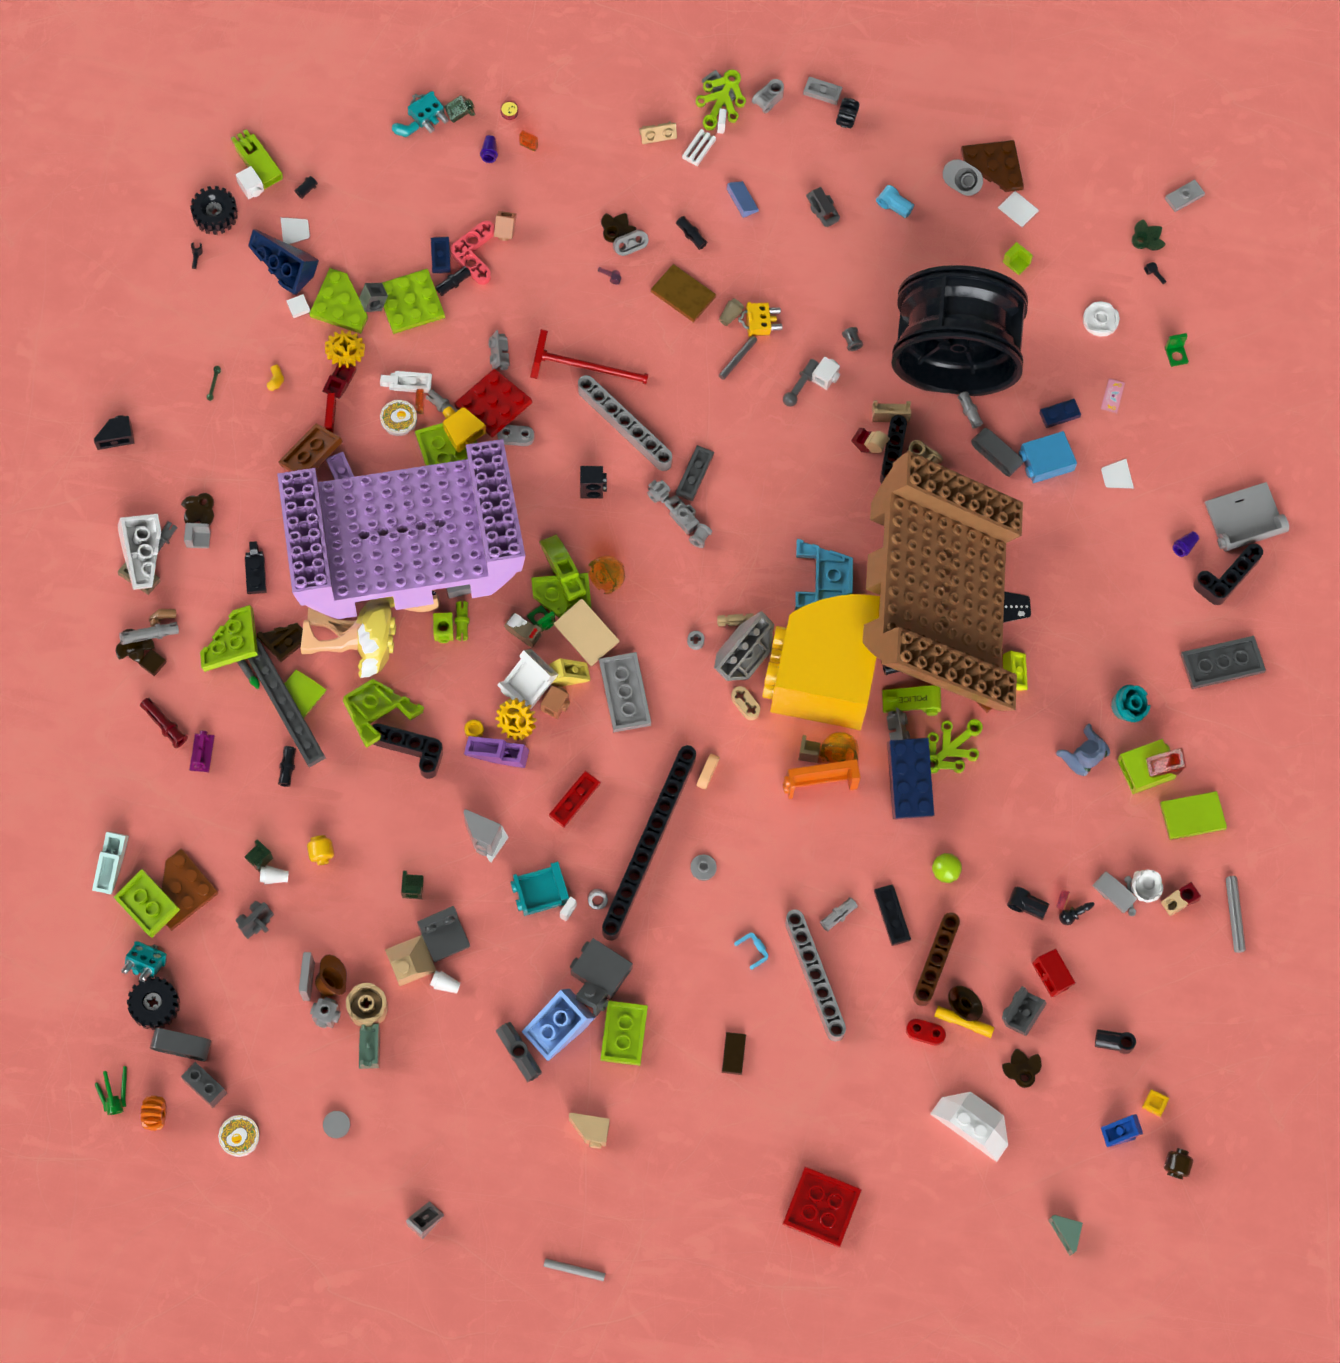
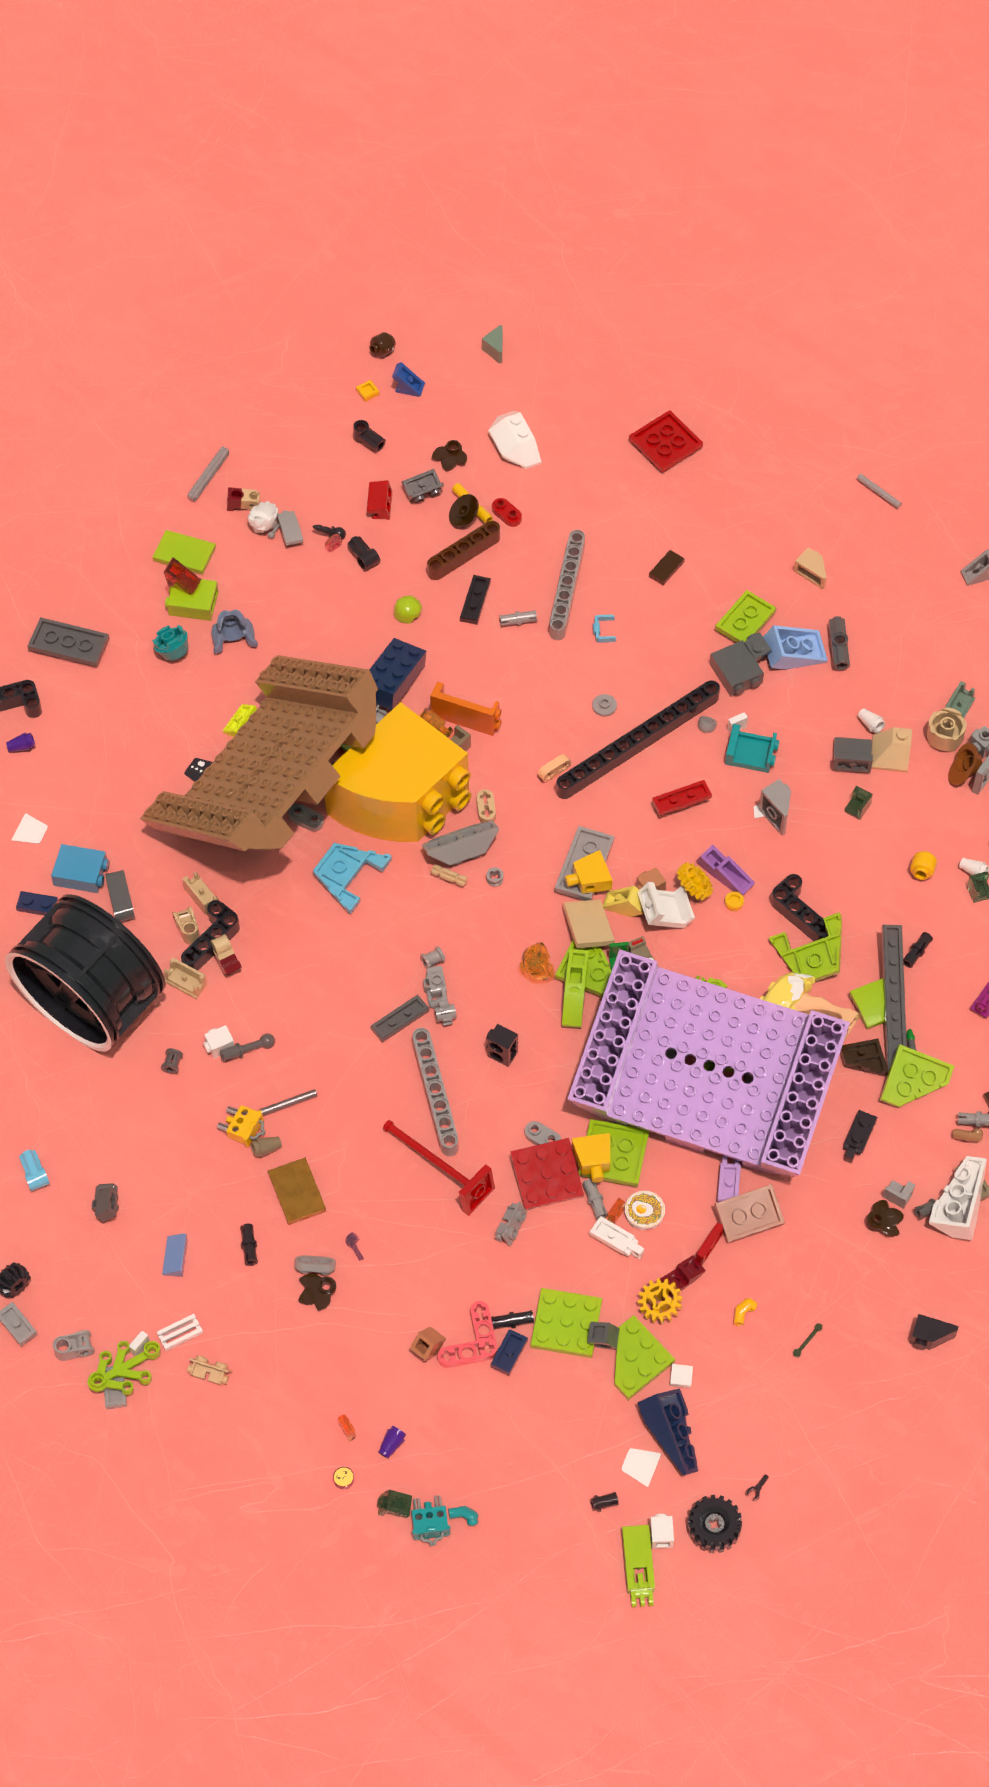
camera: 145 degrees left, 10 degrees down
(610, 673) = (590, 874): none -> yellow torso

